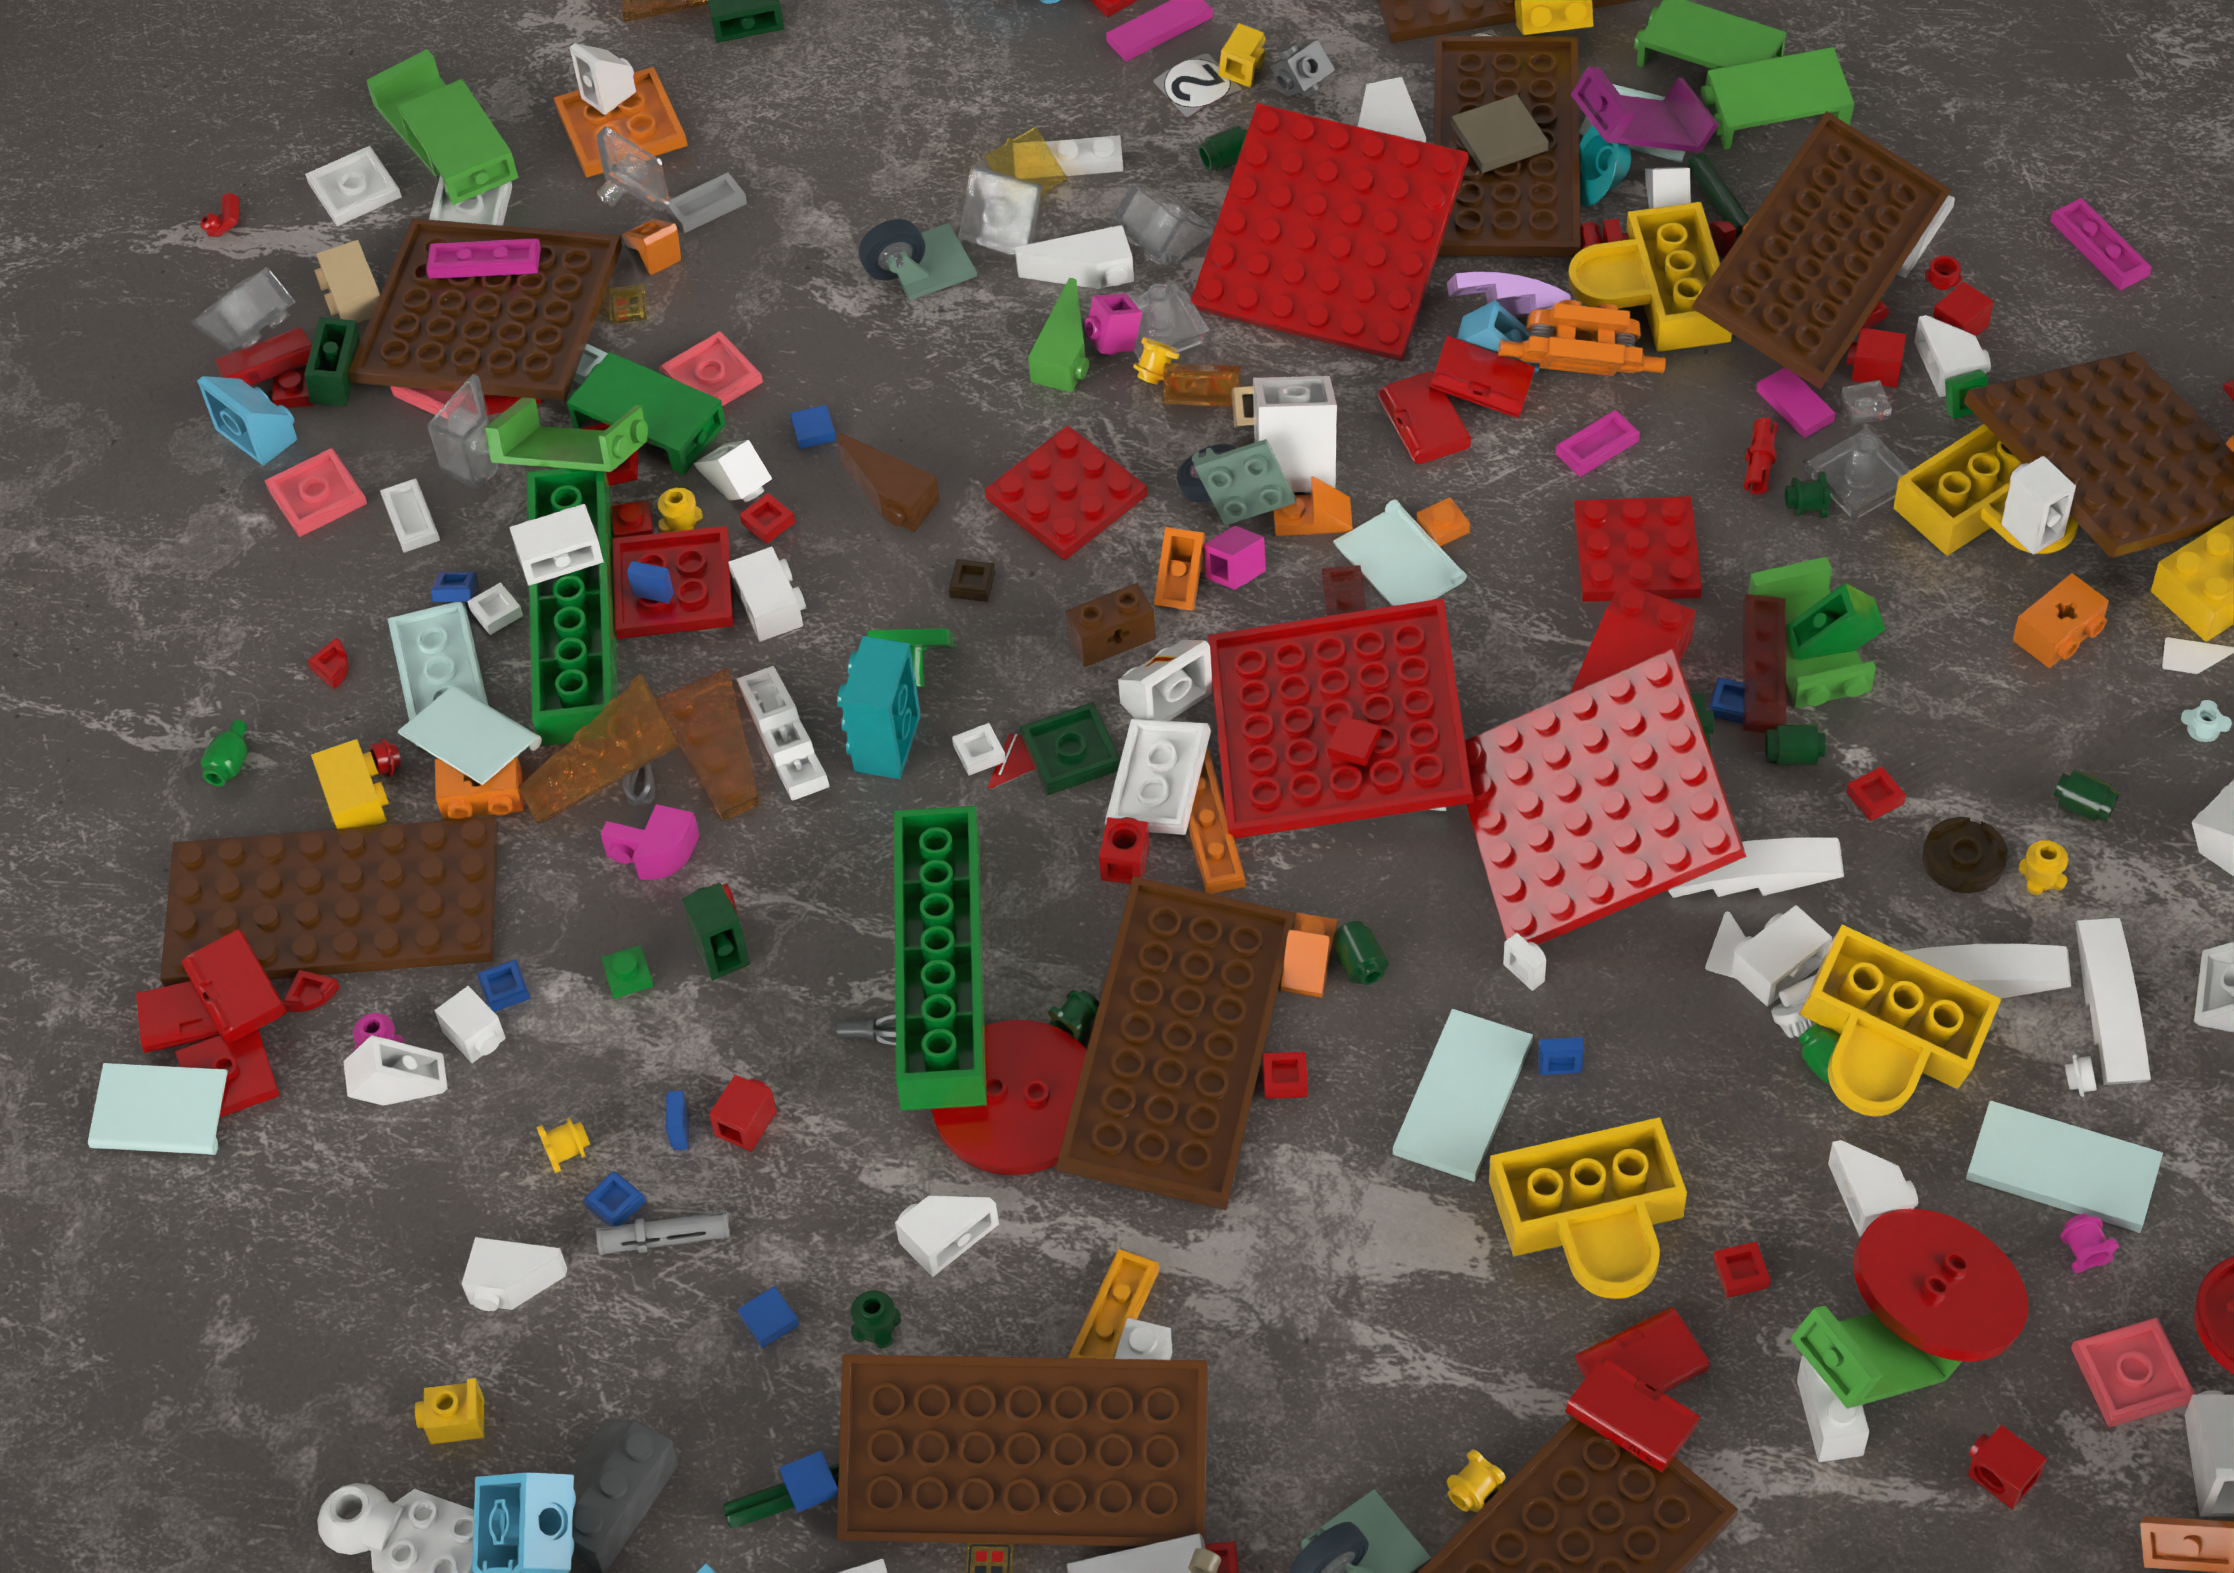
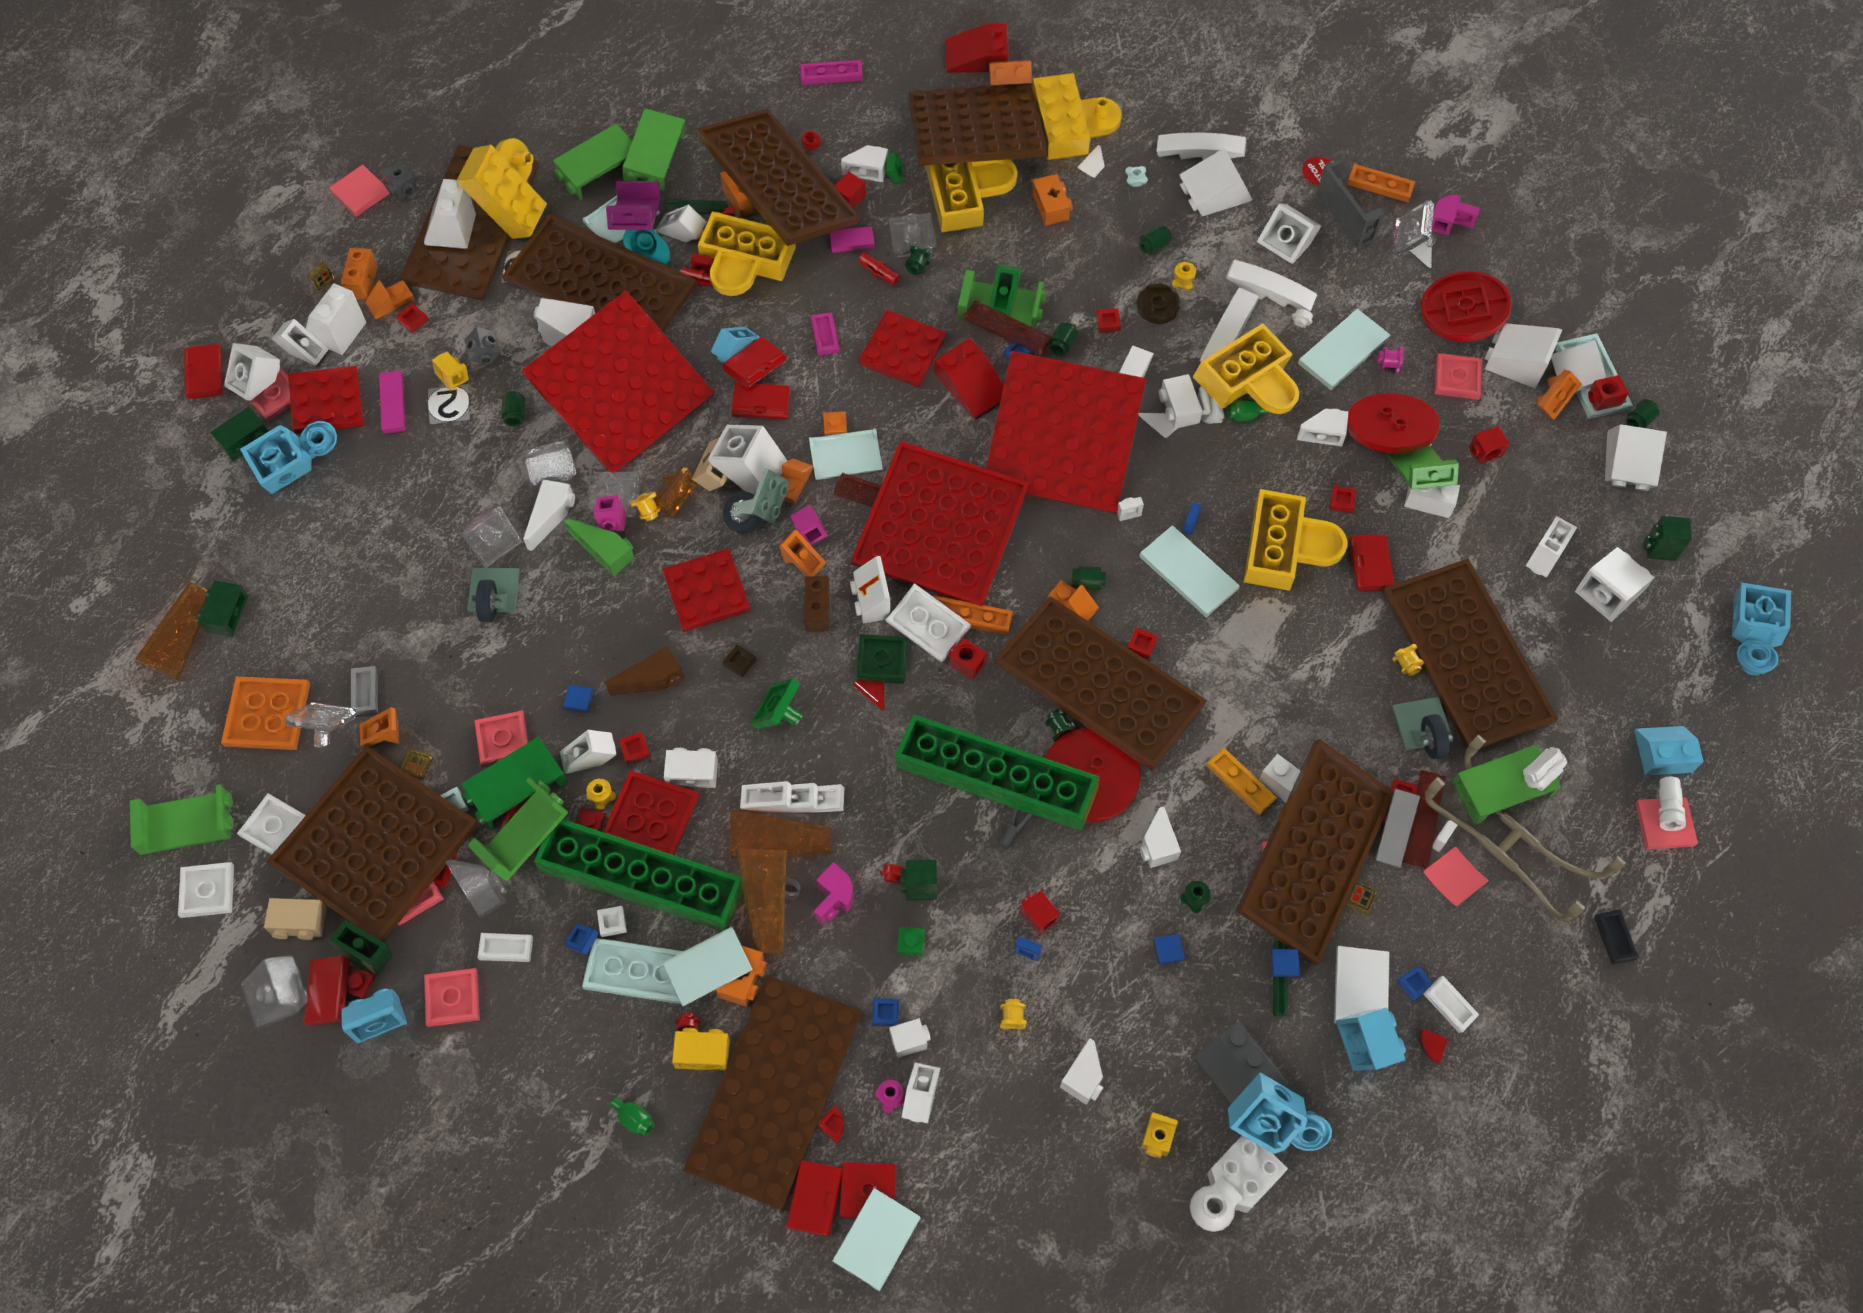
camera: 70 degrees left, 10 degrees up
(229, 217) = (182, 978): red arm -> none
(233, 986) = (817, 1164): red piece -> none
(330, 663) = (594, 1032): red tile -> none
(459, 141) = (221, 808): bright green panel -> none
(483, 258) = (335, 829): dark pink tile -> none
(556, 544) = (608, 861): white brick -> none
(602, 77) = (236, 705): white slope -> none
(614, 1200) = (1058, 1002): blue tile -> none
(650, 582) = (655, 824): blue tile -> none
(665, 1232) = (1091, 993): light grey pin -> none
(880, 707) = (822, 734): teal brick -> none
(978, 749) = (860, 703): white plate -> none
(1028, 160) = (458, 509): clear yellow piece -> none
(1088, 155) = (461, 489): white plate -> none
(1353, 740) = (966, 520): red tile -> none
(1499, 133) = (596, 277): dark tan tile -> none
(1513, 292) = (711, 328): lavender slope -> none
(1583, 341) = (759, 301): orange piece -> none
(1632, 1414) = (1405, 576): red piece -> none
(1866, 402) = (872, 210): clear plate -> none
(1965, 309) = (843, 143): red brick -> none
(2038, 504) = (1005, 166): white brick -> none

